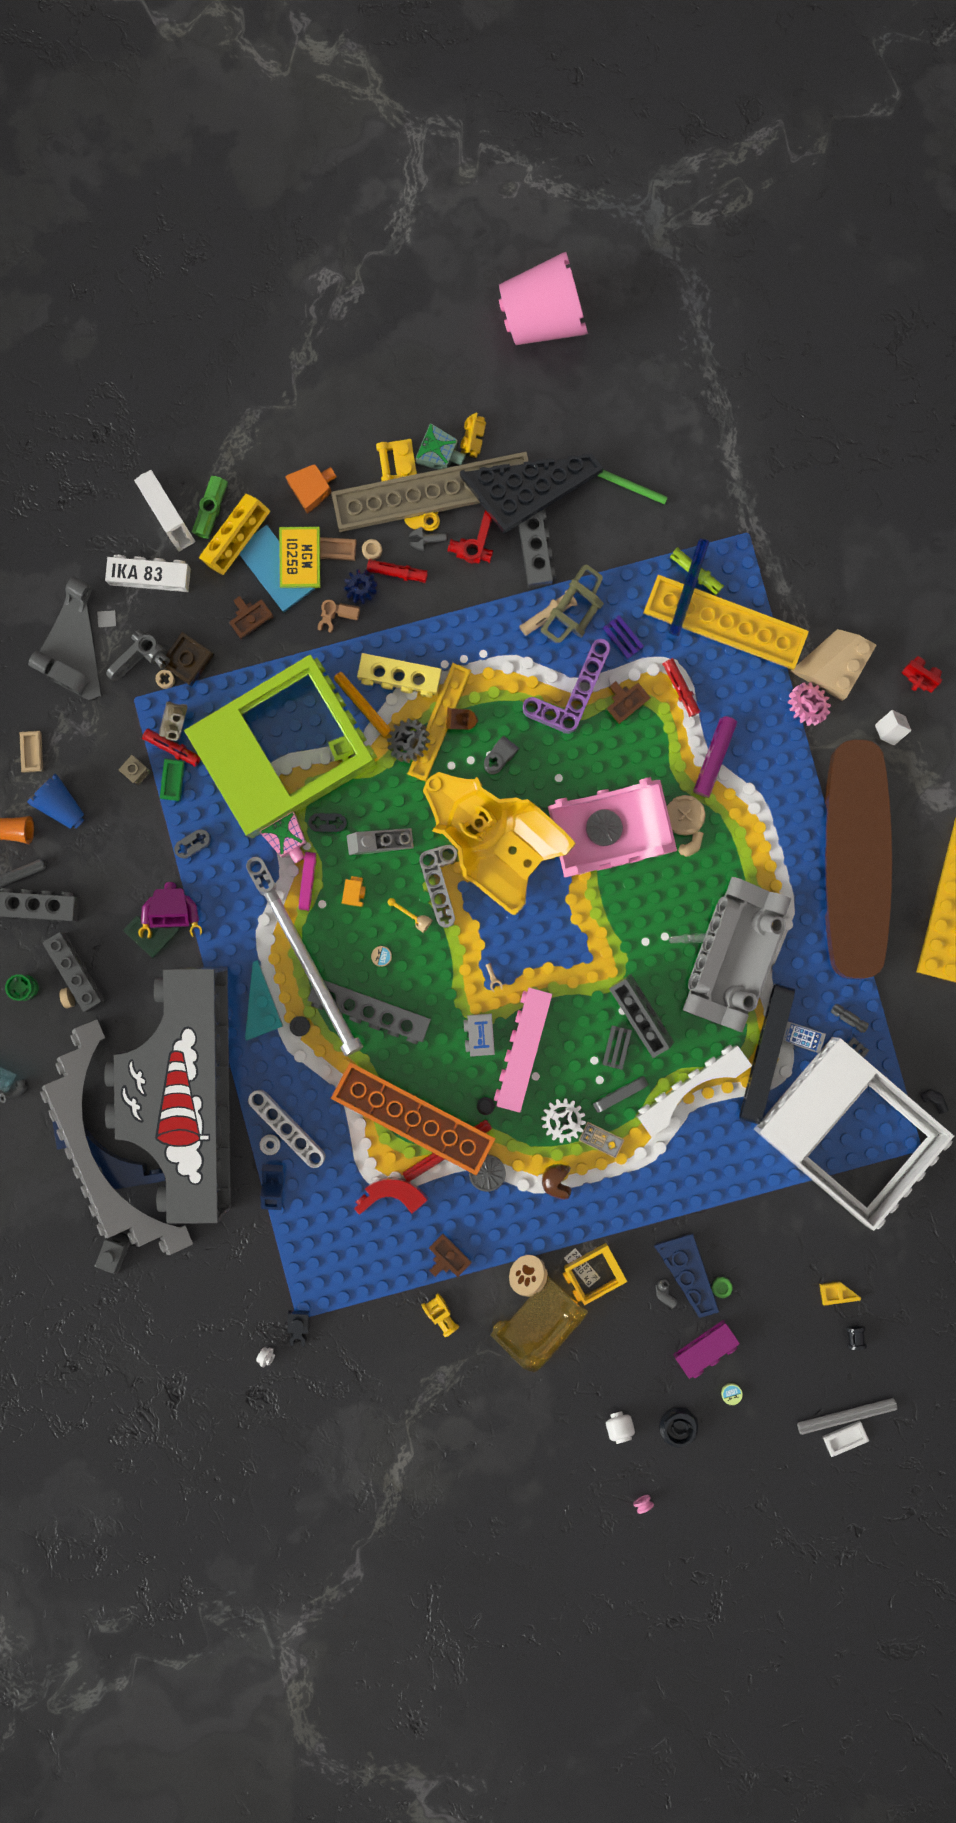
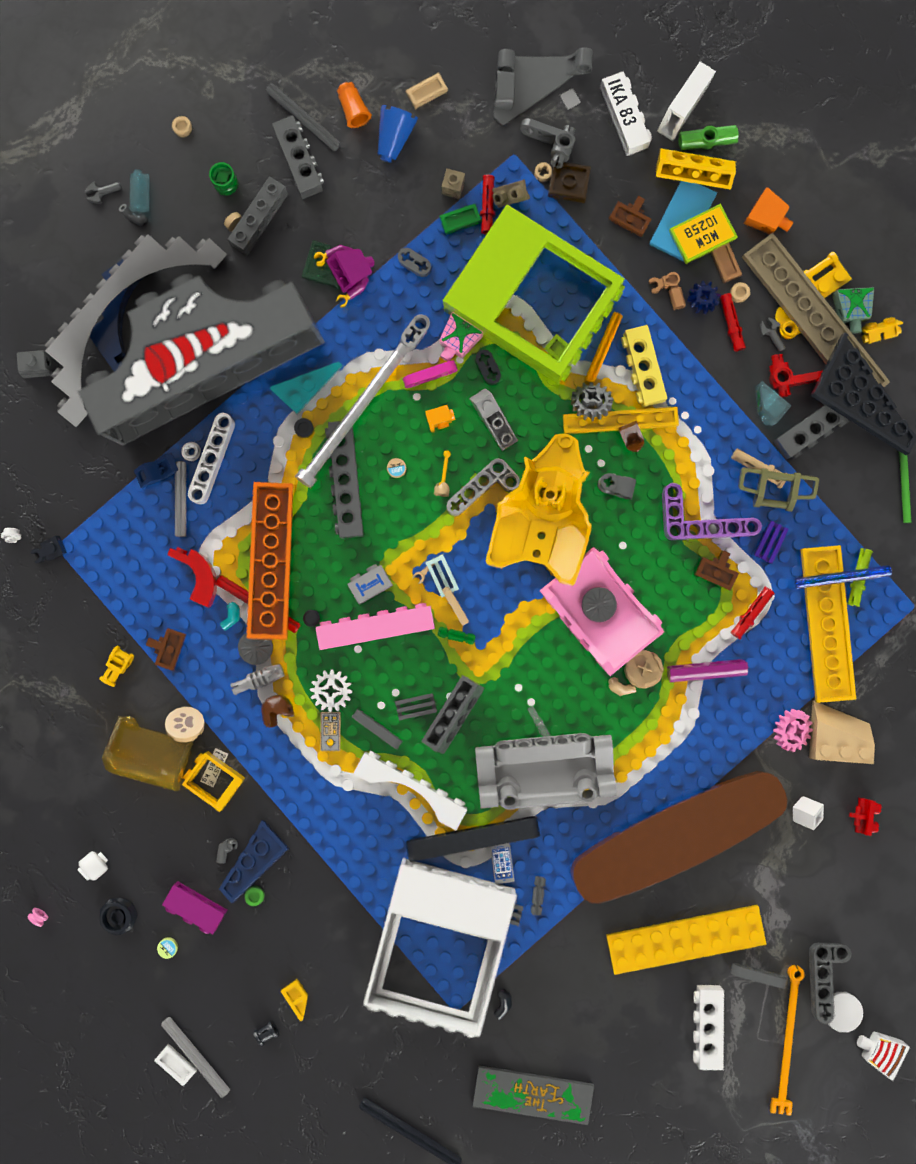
camera: 55 degrees right, 0 degrees up
(311, 1177) = (180, 499): none -> light grey axle
(446, 1179) = (233, 616): none -> teal arm
(487, 962) = (435, 560): none -> light aqua tile
(493, 574) = (769, 404): none -> clear light blue slope
(519, 1184) = (258, 679): none -> light grey hinge
(540, 963) = (455, 605): none -> tan tile
(568, 976) = (456, 635): none -> green axle

